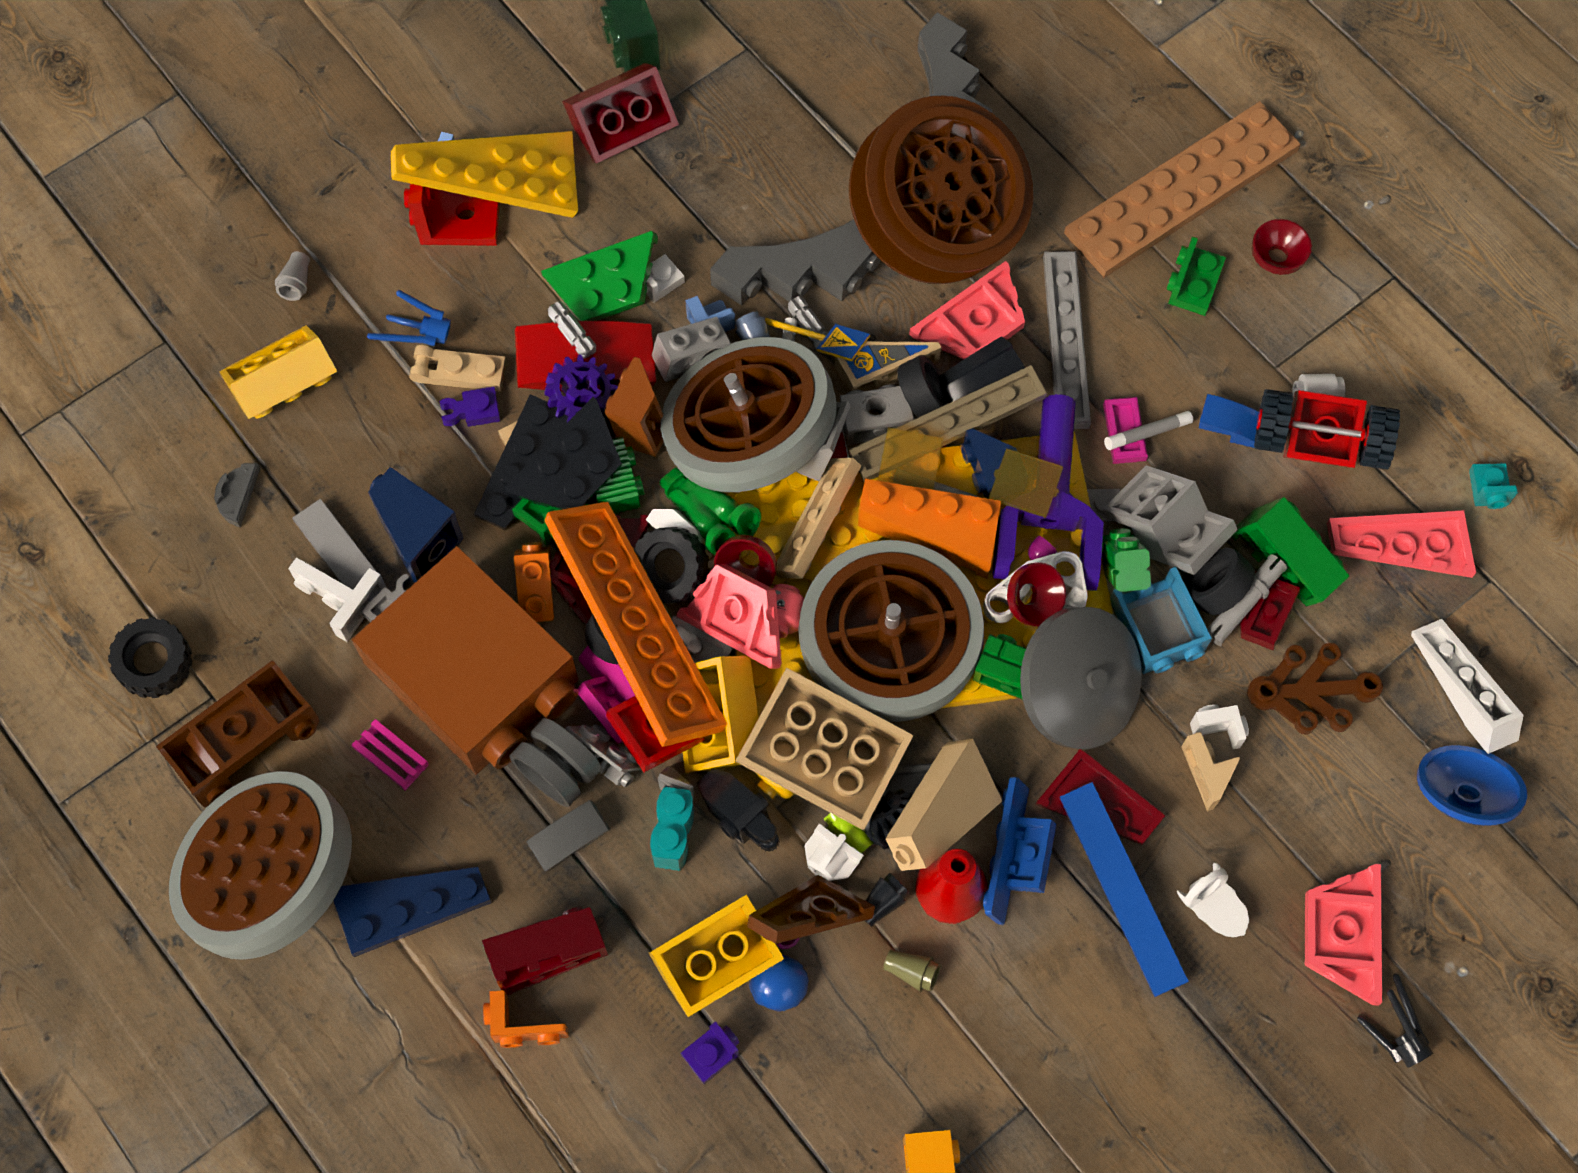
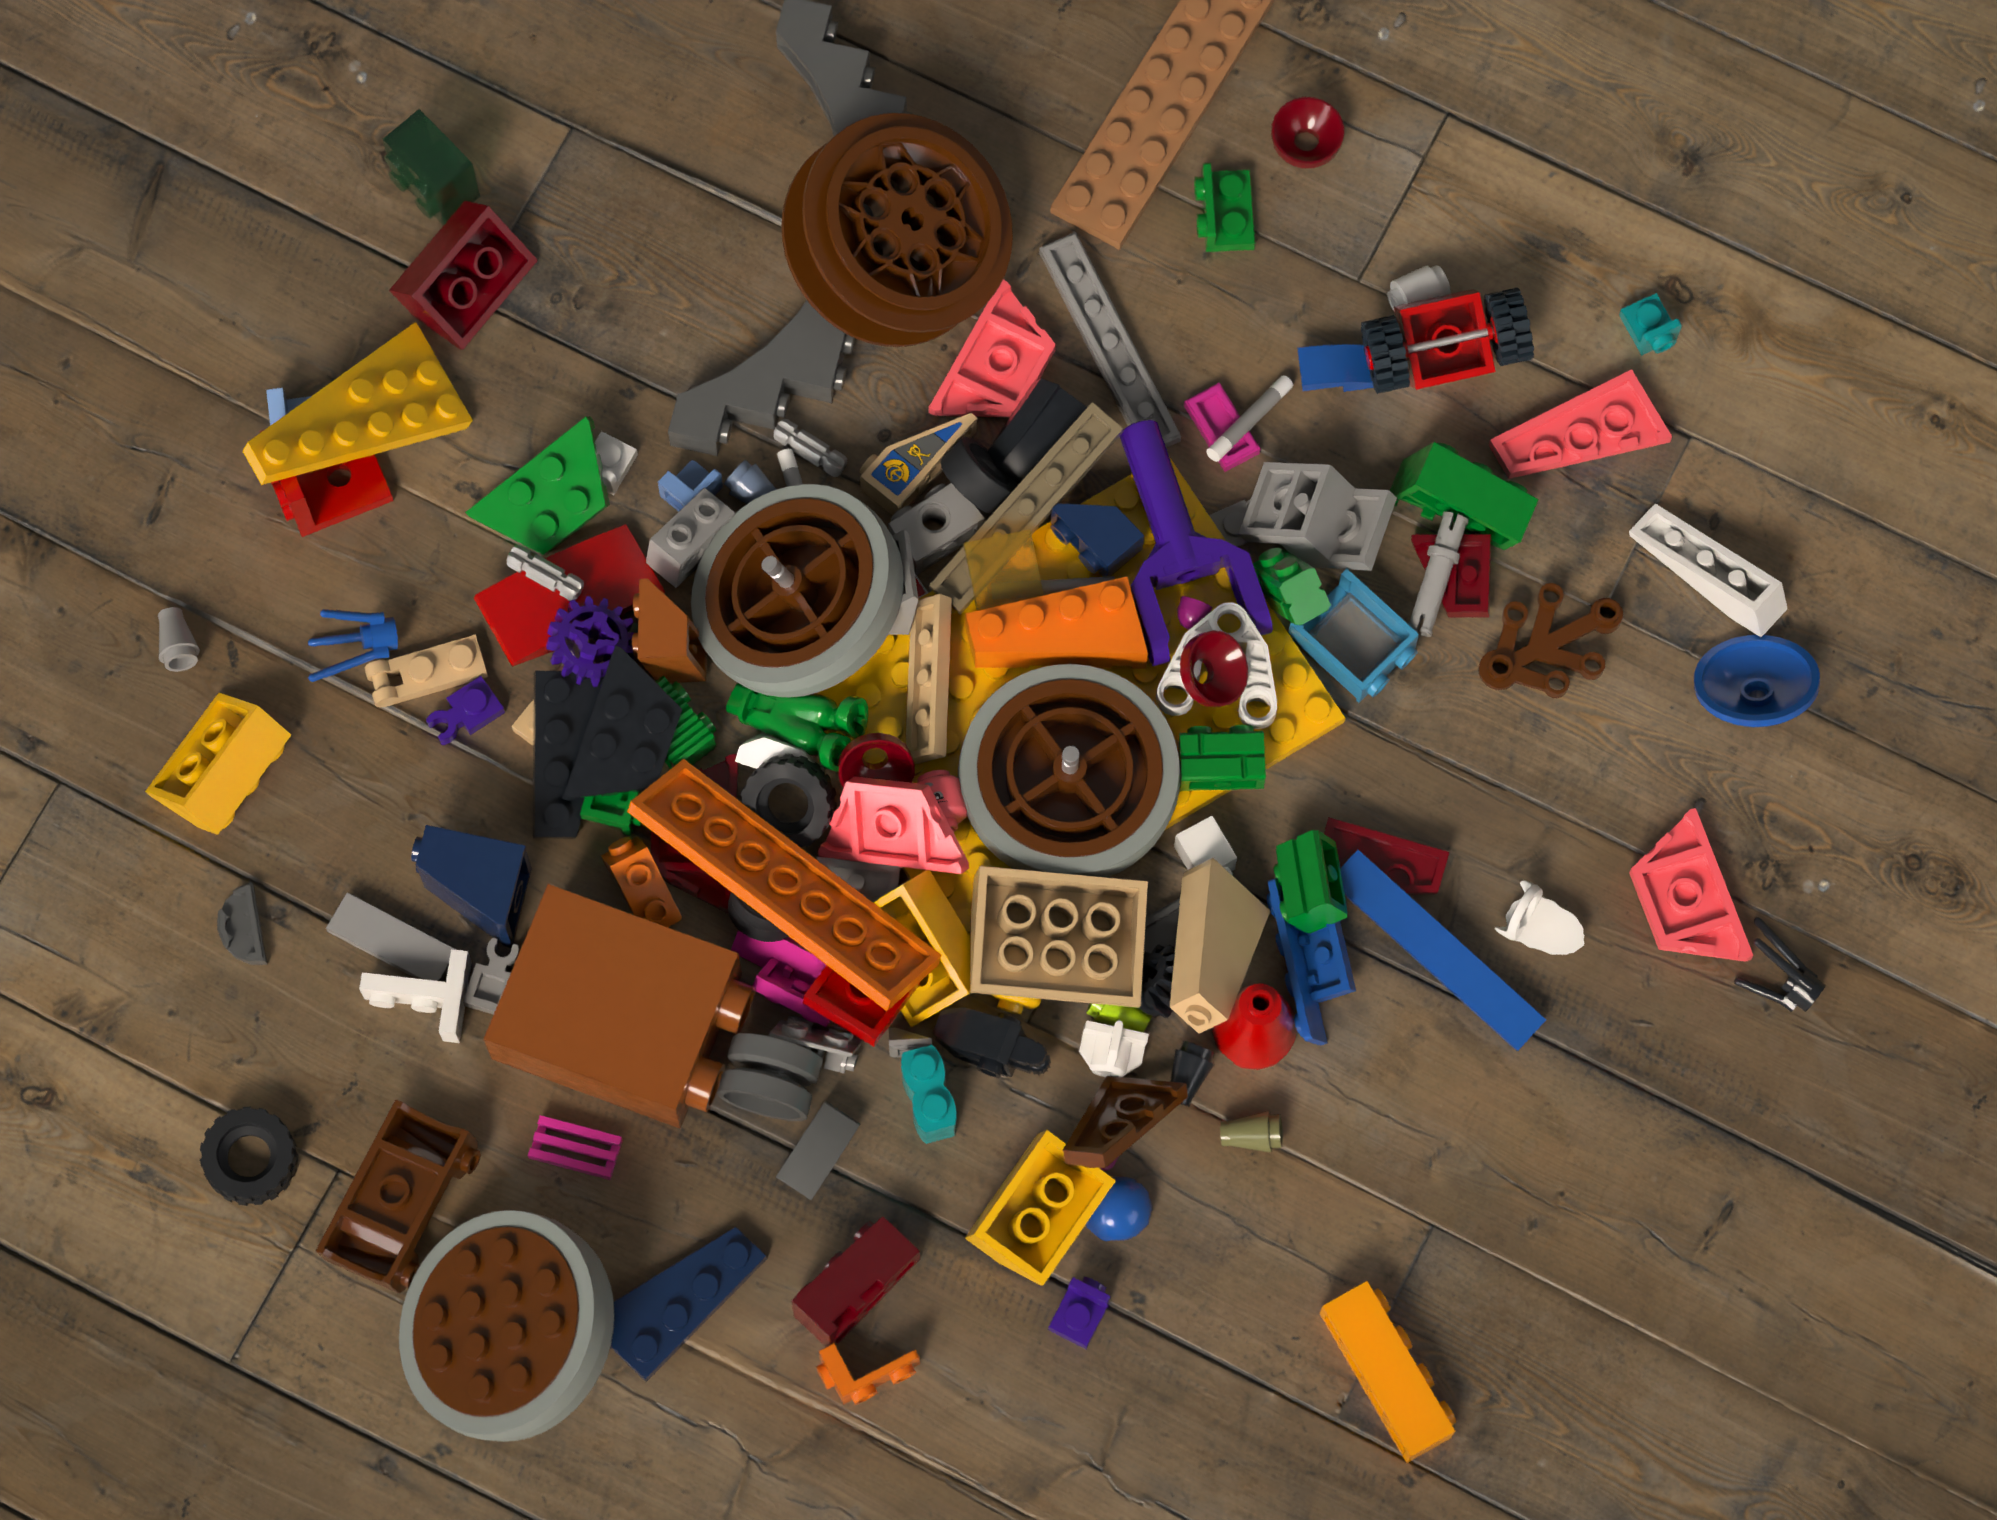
camera: 25 degrees left, 5 degrees up
(839, 342) = (858, 459): piece -> none
(974, 725) = (1203, 843): none -> white brick
(1026, 482) = (1145, 543): clear yellow piece -> none
(1043, 791) = (1310, 882): none -> green brick
(1081, 677) = (1298, 739): dark grey dish -> none
(1209, 777) = (1479, 790): tan slope -> none
(1215, 719) = (1458, 722): white bracket -> none
(1221, 581) = (1418, 568): black tyre -> none

